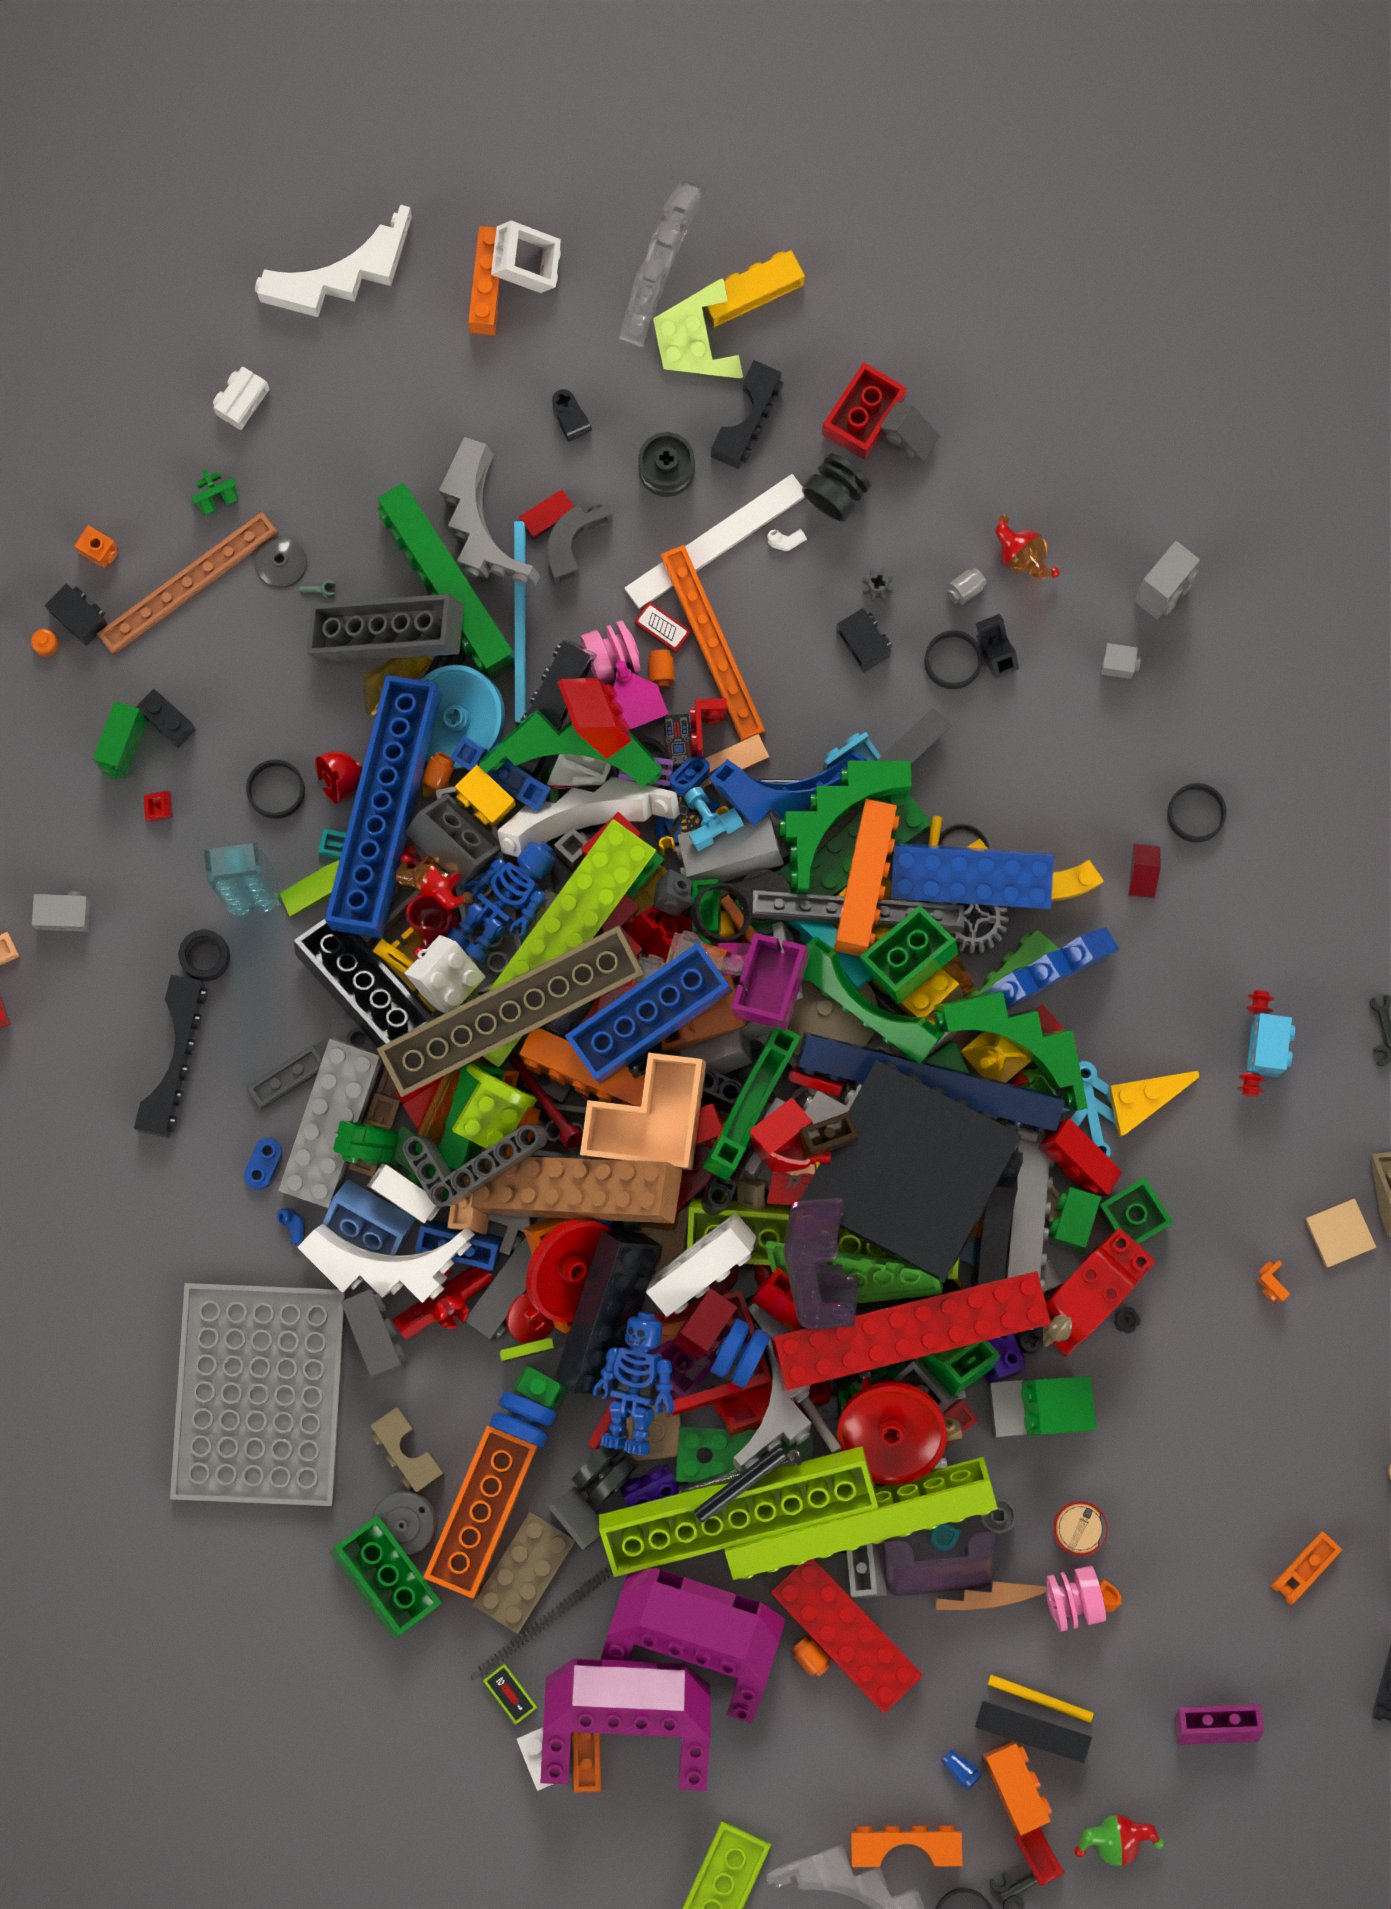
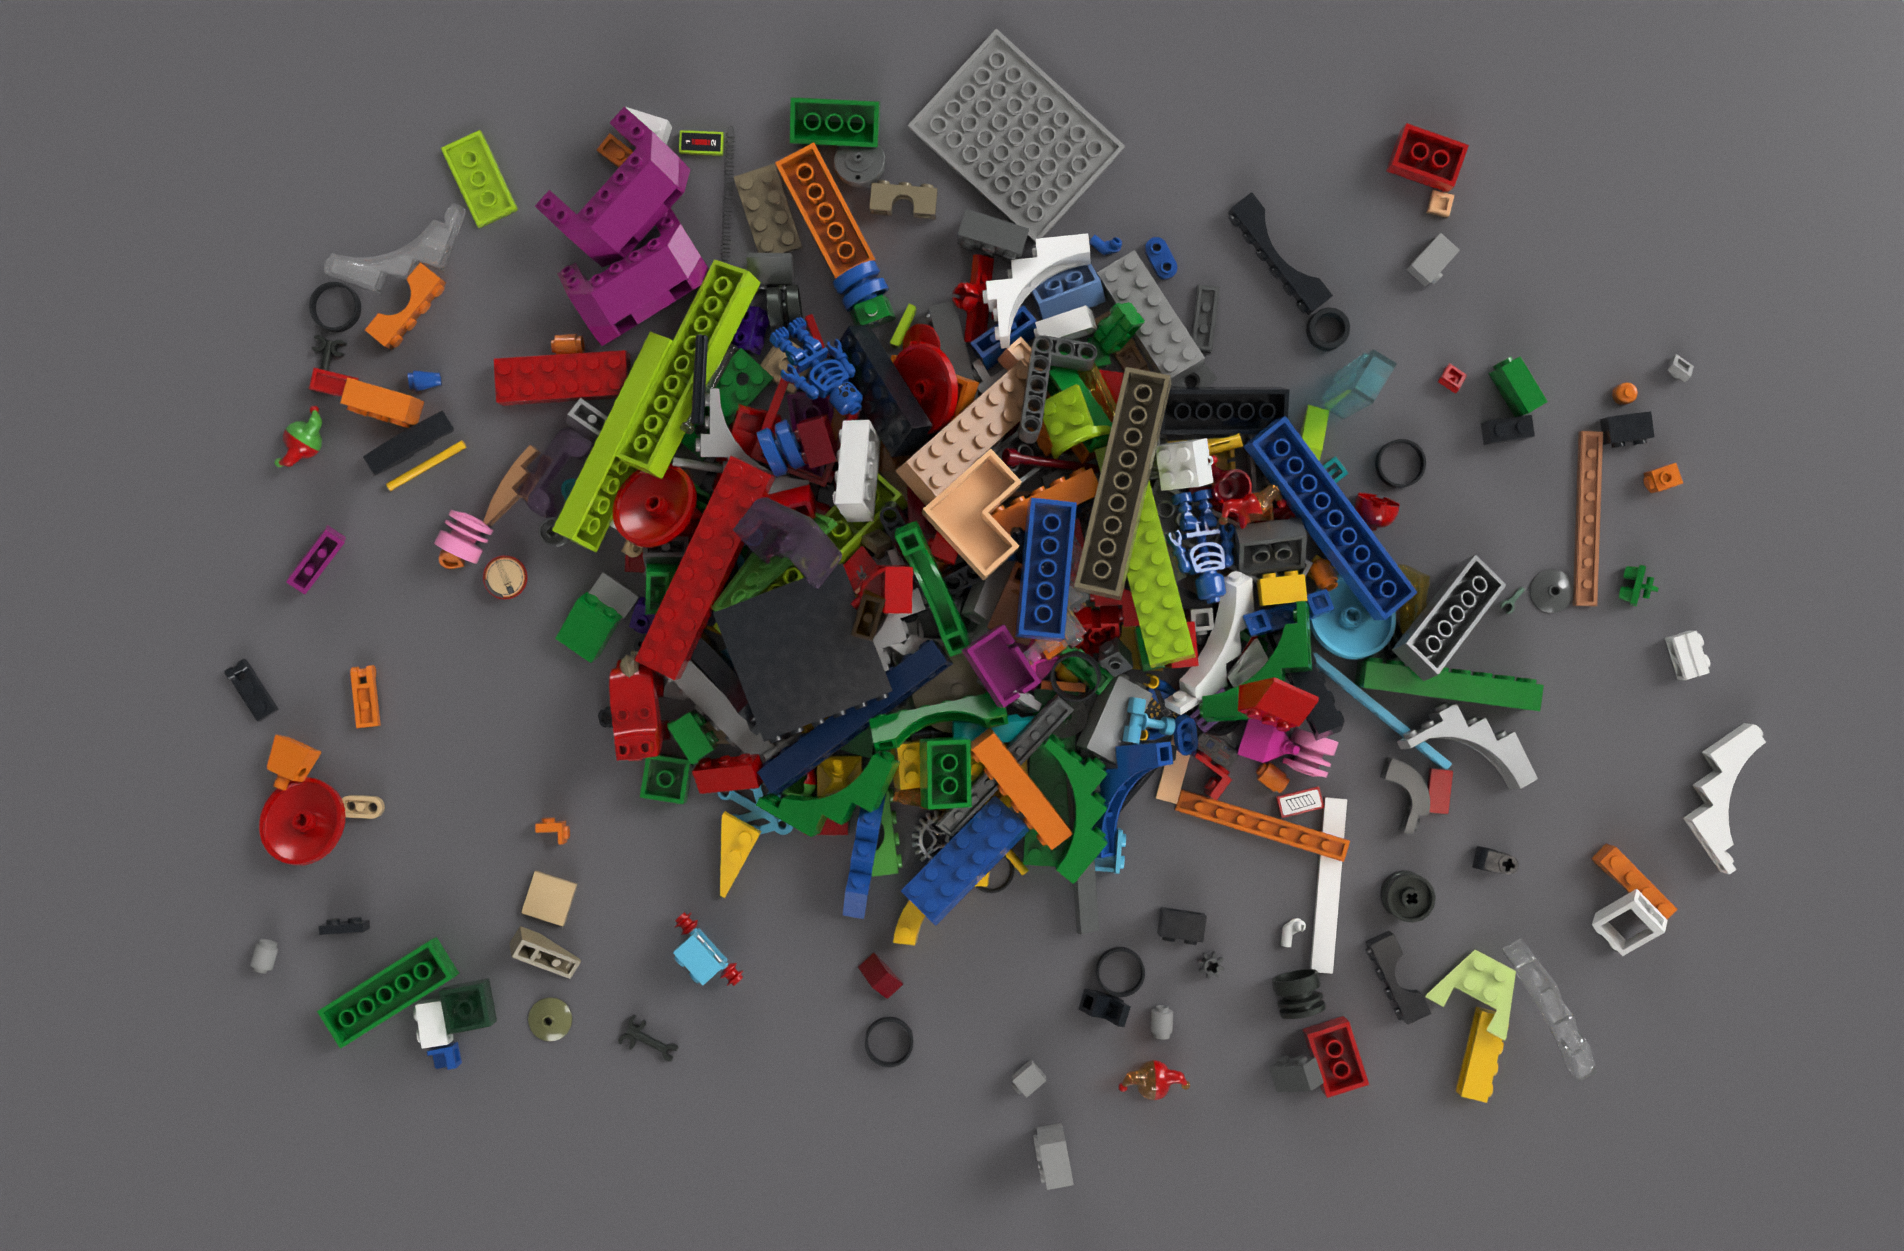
camera: 135 degrees right, 10 degrees up
(818, 1082) = (912, 644): red tile -> none

